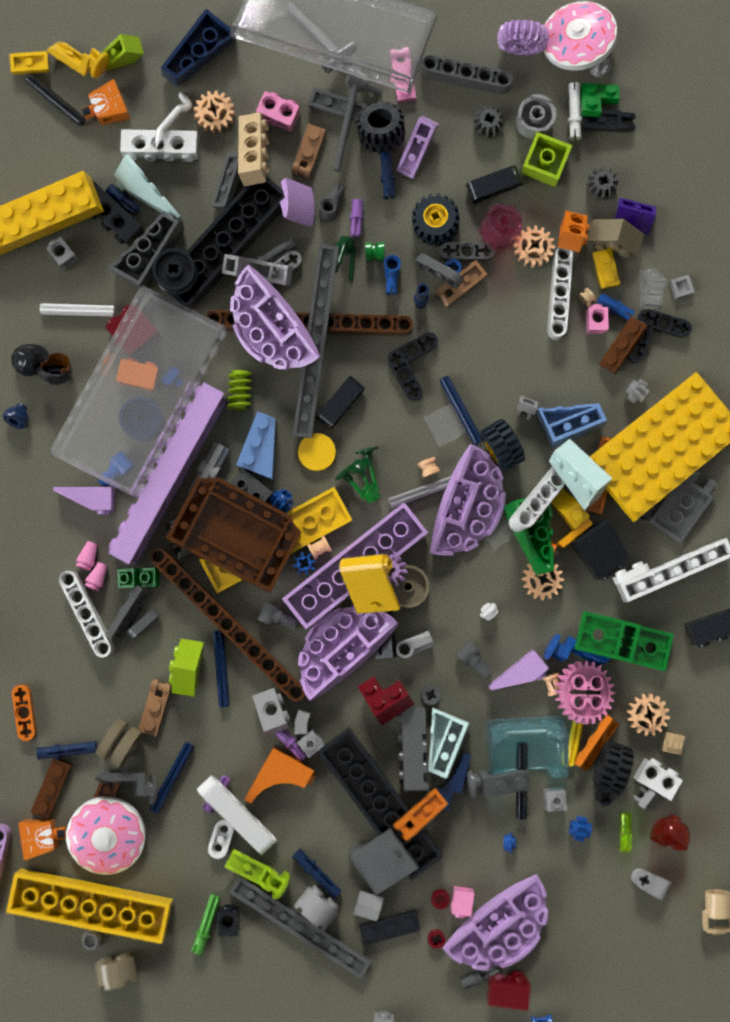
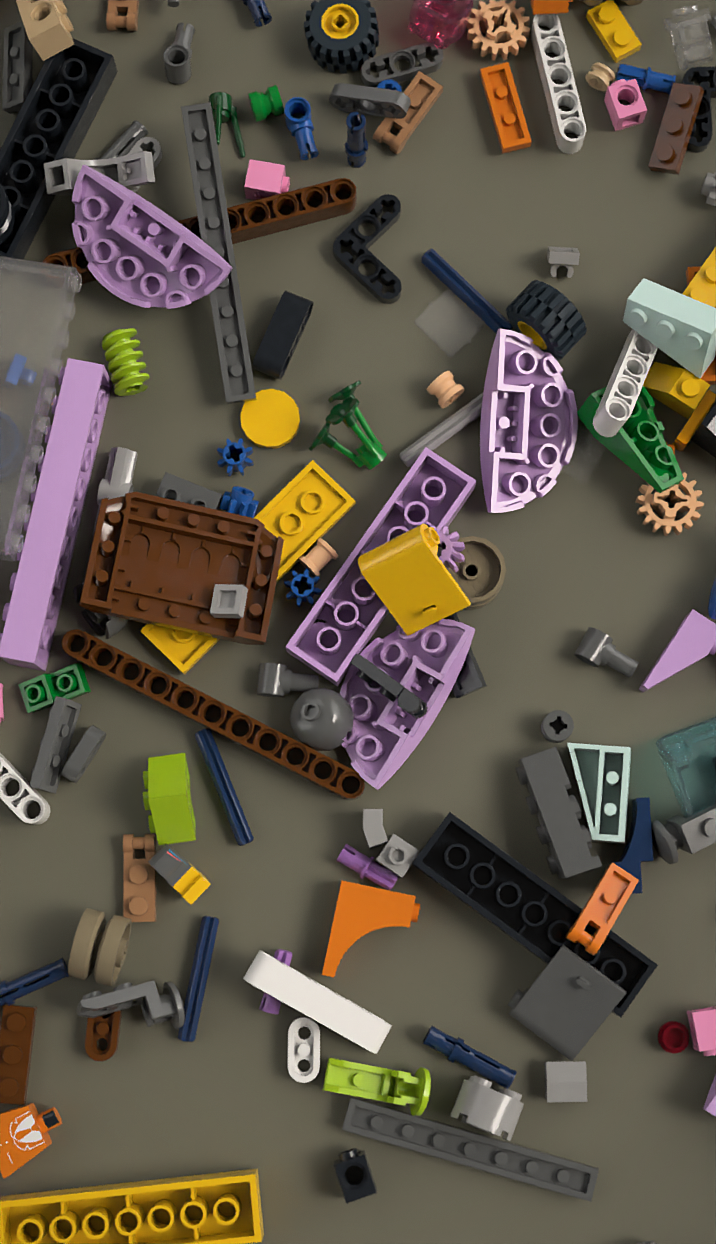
camera: 15 degrees left, 5 degrees down
(106, 835) = (122, 1100): dish -> none
(179, 713) = (179, 873): none -> leg
(206, 924) = (321, 1203): bright green axle -> none
(256, 561) = (228, 601): none -> light grey tile
(259, 447) = (181, 435): medium blue wedge -> none
(264, 702) = (331, 841): light grey brick -> none
(283, 467) = (233, 466): none -> blue gear
(291, 647) = (321, 719): none -> dark grey cylinder
(298, 202) = (130, 64): lavender slope -> none
(337, 642) = (390, 688): none -> black hinge
(356, 218) = (224, 64): medium lavender axle -> none
(359, 302) = (265, 180): none -> bright pink brick
(388, 702) = (496, 755): dark red brick -> none
(389, 927) = (609, 1106): black plate -> none
(416, 644) = (510, 657): light grey piece -> none
(438, 945) = (693, 1109): dark red bush -> none
(489, 611) = (605, 574): white plate -> none
(522, 299) = (505, 107): none -> orange plate
(570, 422) = (625, 262): medium blue wedge -> none

